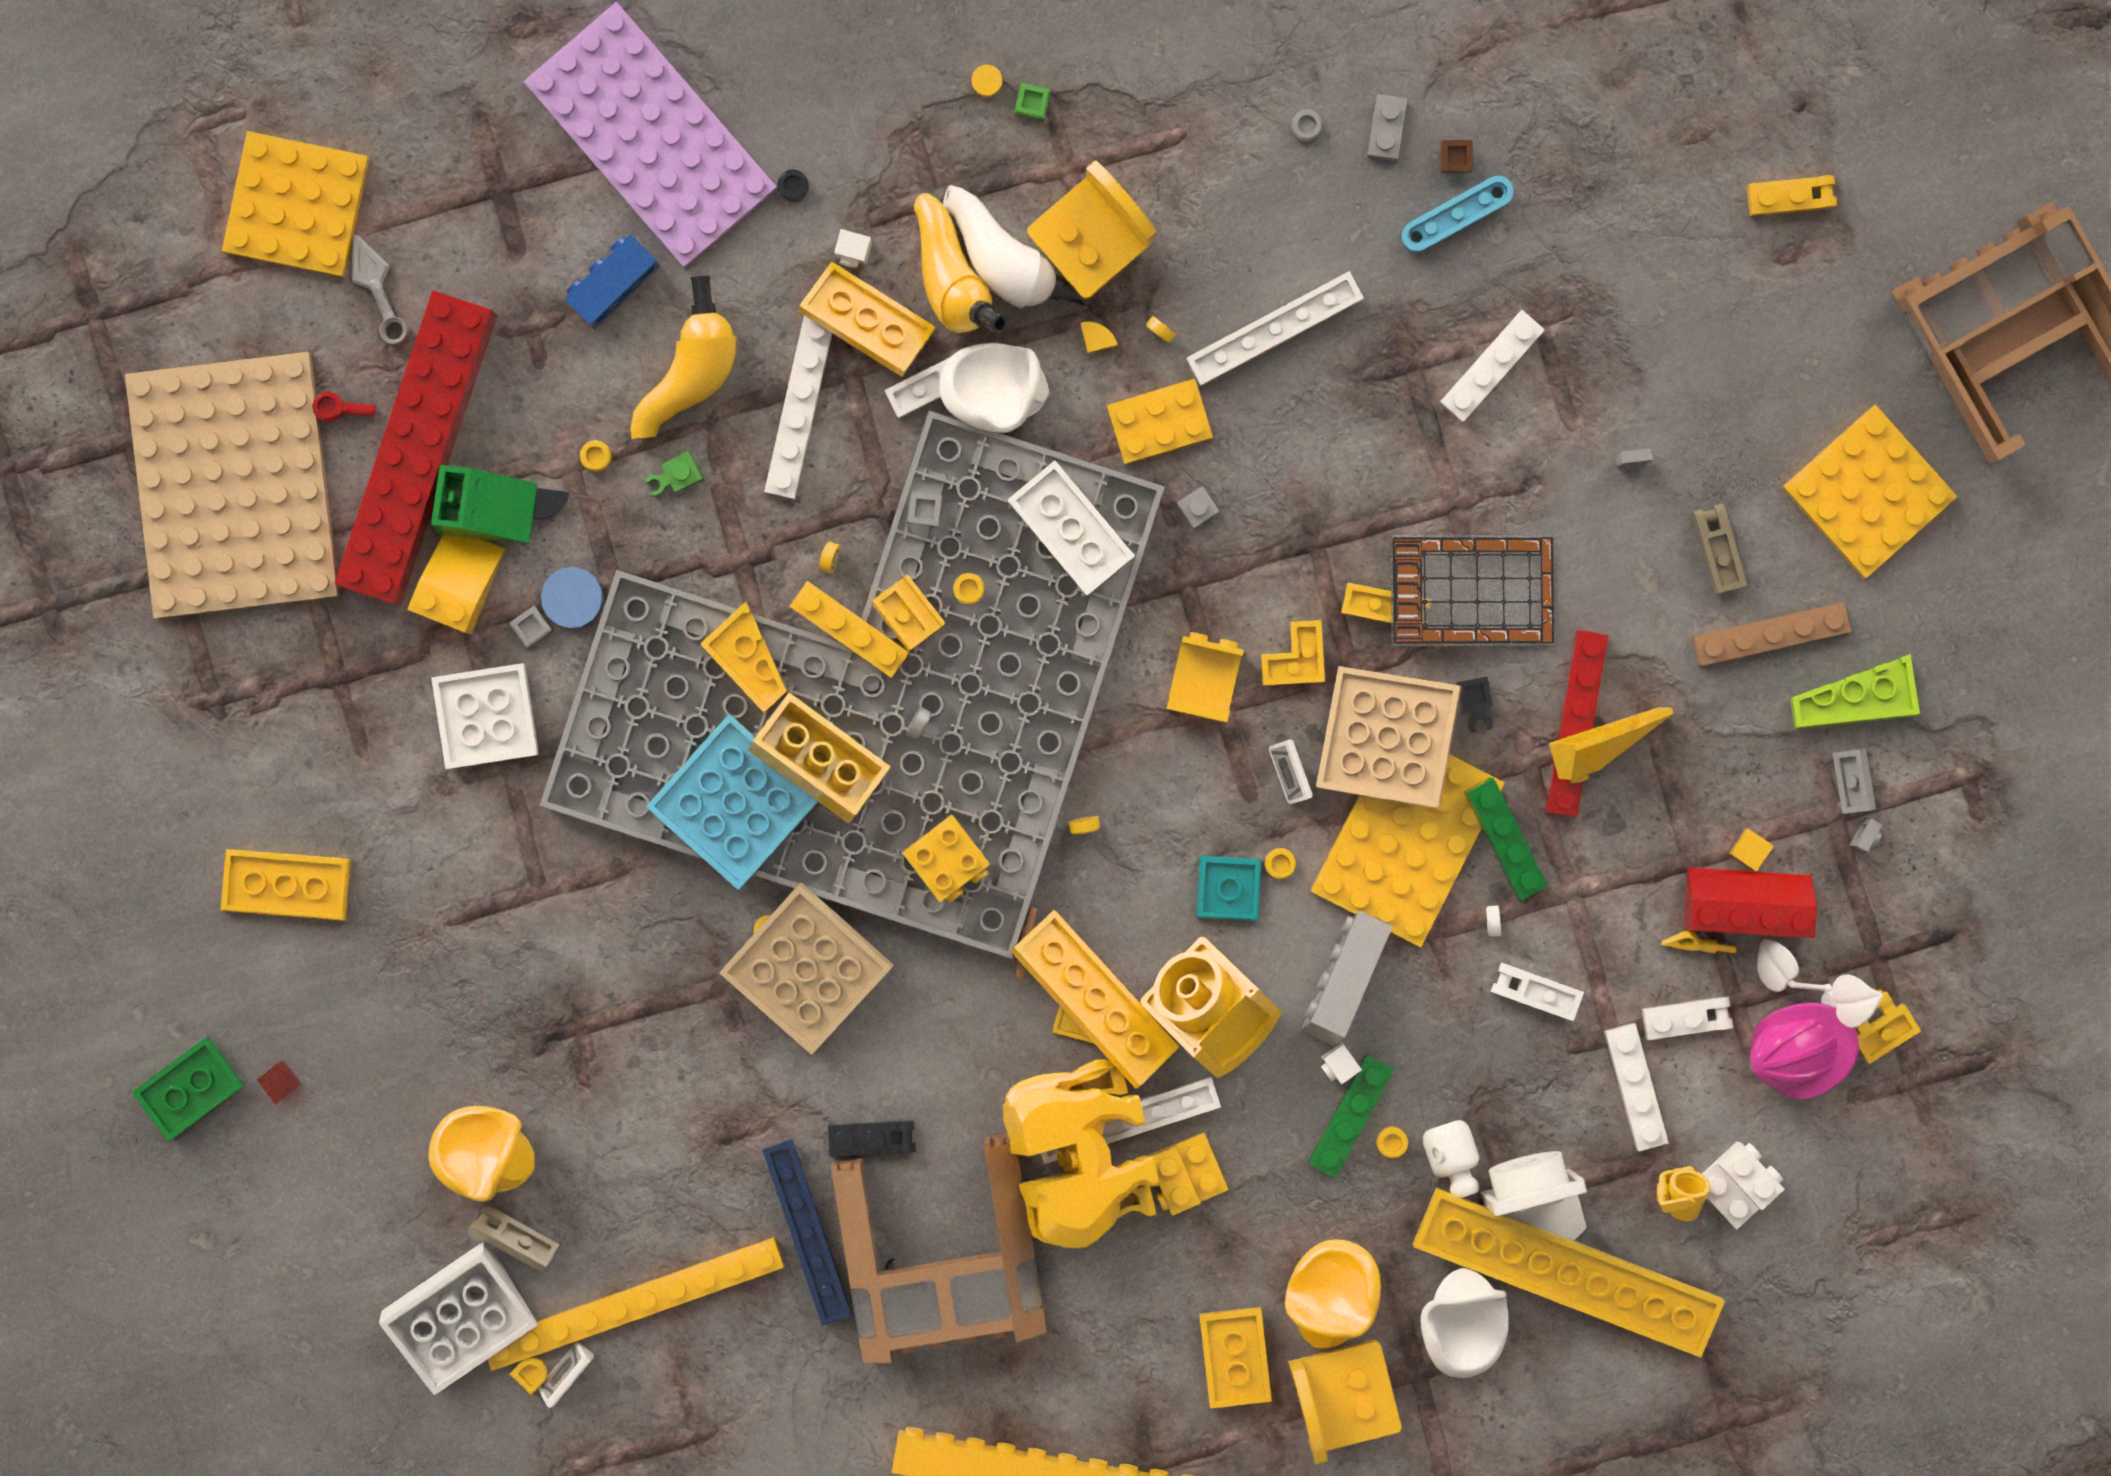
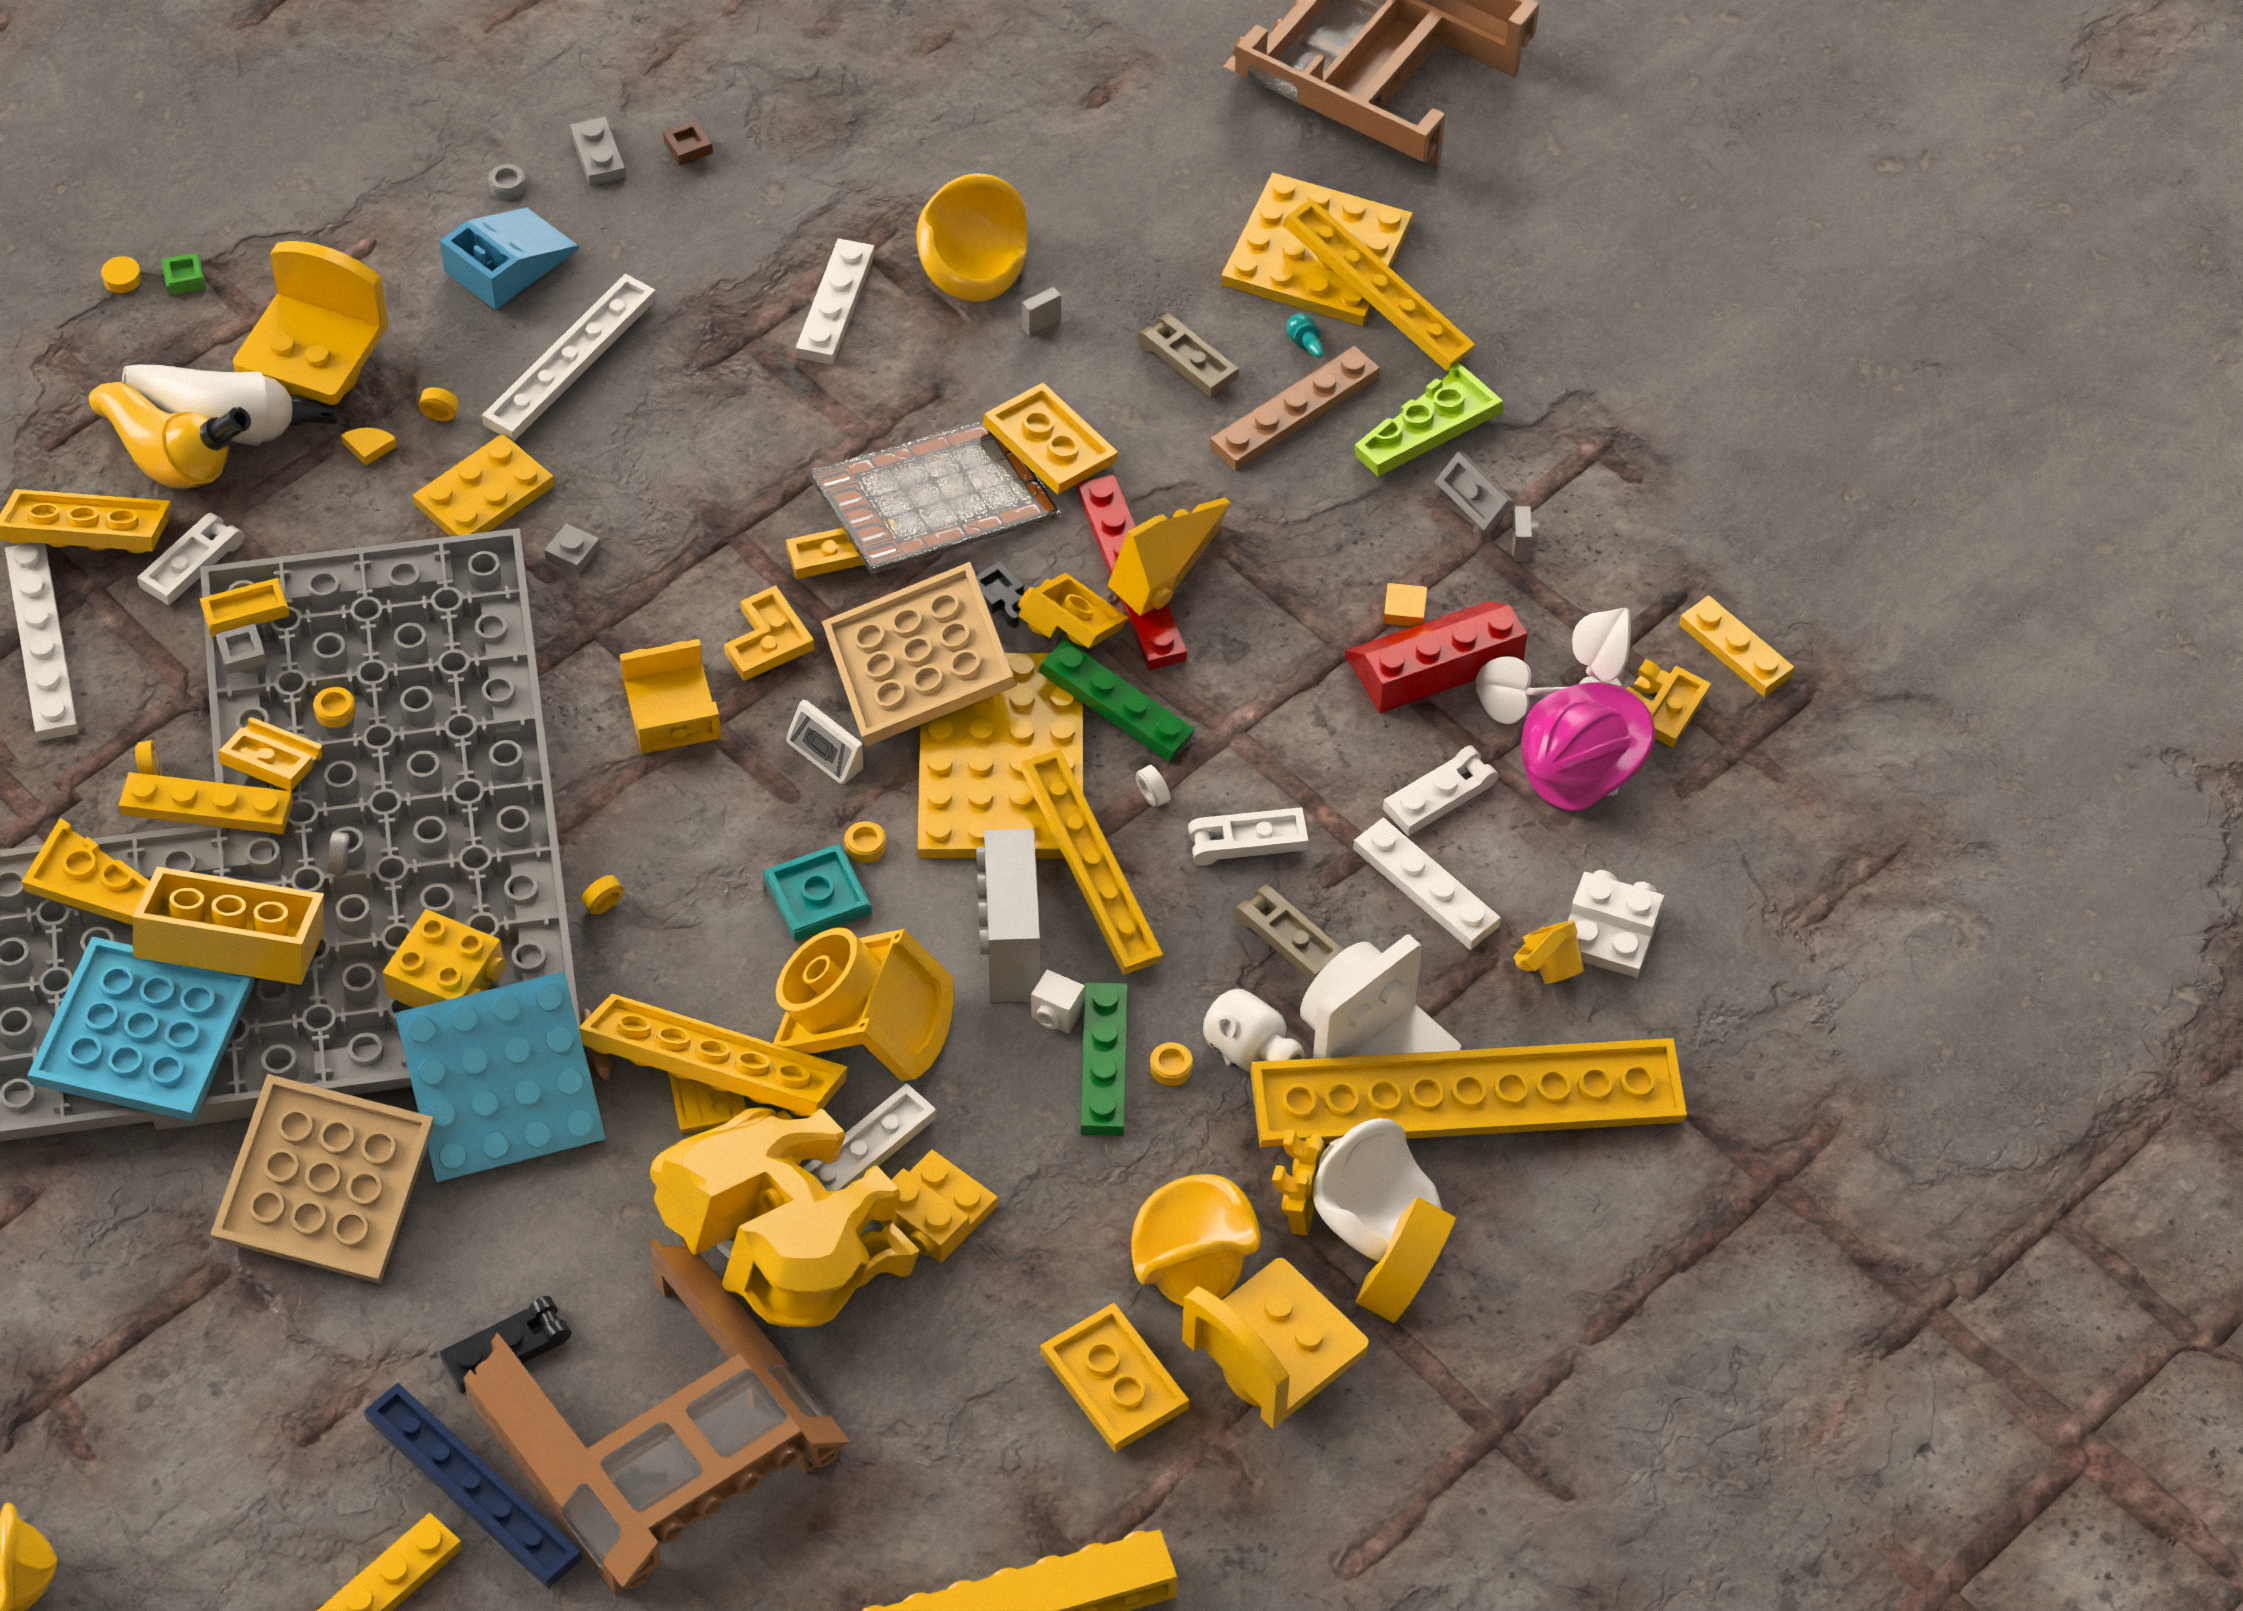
camera: 30 degrees left, 35 degrees down
(852, 249) = (35, 466): white plate -> none
(943, 467) = (244, 606): none -> yellow tile
(949, 954) = (500, 1076): none -> medium azure plate
(993, 386) = (269, 515): white piece -> none
(1071, 528) = (428, 599): white plate -> none
(1274, 206) = (503, 254): none -> dark azure slope
(1416, 1294) = (1298, 1190): none -> yellow plate
(1418, 968) = (1091, 861): none -> yellow plate
(1457, 214) = (717, 188): medium azure plate -> none
(1460, 1386) = (1407, 1260): none -> yellow brick
(1511, 754) = (1071, 608): none -> yellow plate
(1522, 1084) = (1287, 931): none -> dark tan plate
(1579, 581) = (1050, 438): none -> yellow plate
(1614, 373) = (973, 237): none -> yellow piece
(1695, 943) = (1405, 715): yellow hand -> none
(1791, 195) = (1069, 46): yellow plate -> none
(1815, 563) = (1303, 331): none -> teal bar
(1889, 564) = (1378, 284): none -> yellow plate
(1960, 1000) = (1736, 646): none -> yellow plate

